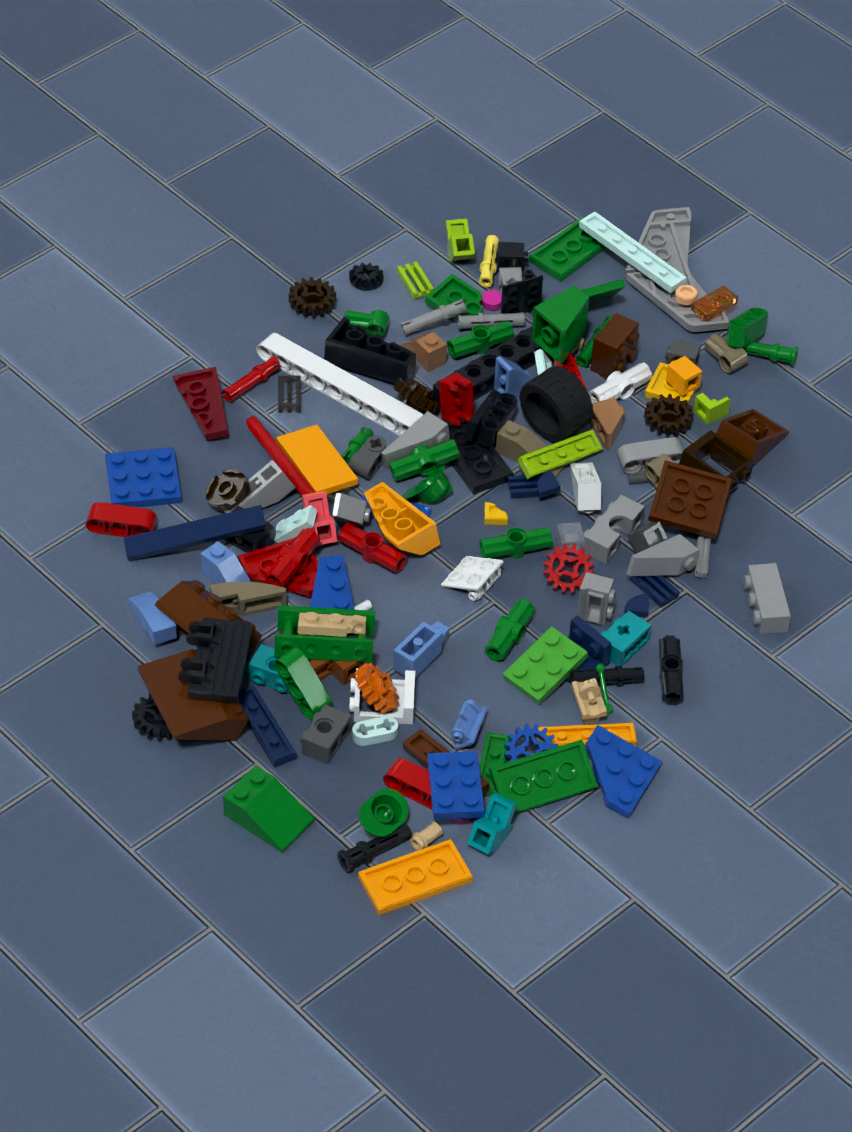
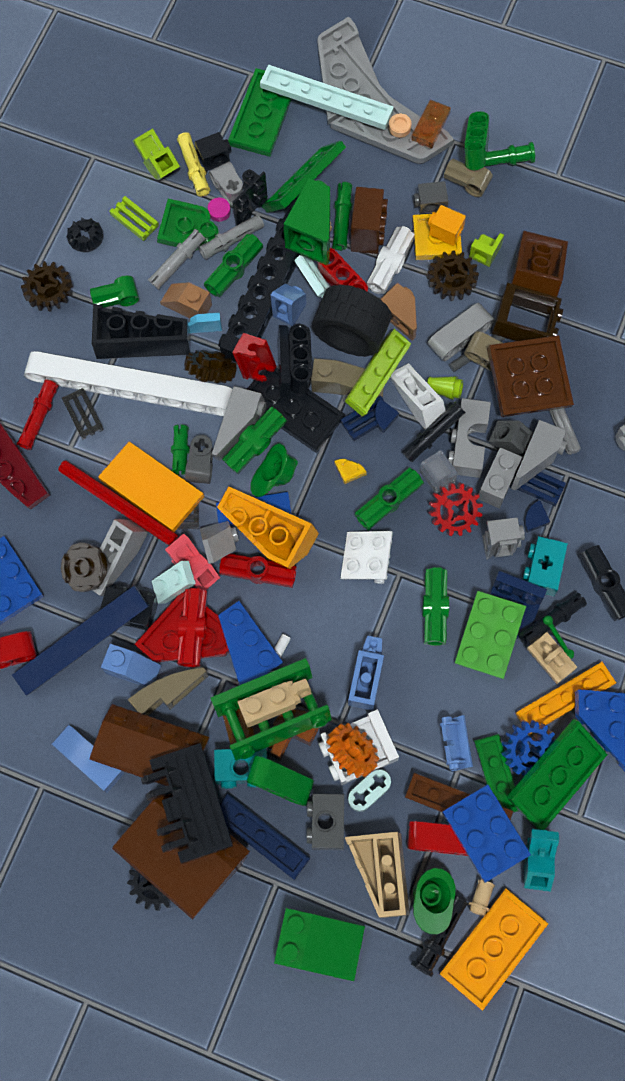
camera: 20 degrees left, 25 degrees up
(353, 778) = (383, 871): none -> tan wedge
(431, 369) = (205, 323): none -> medium azure tile
(590, 506) = (435, 430): none -> black pin
(615, 487) = (447, 386): none -> lime cone
(616, 561) = (499, 477): none -> light grey brick

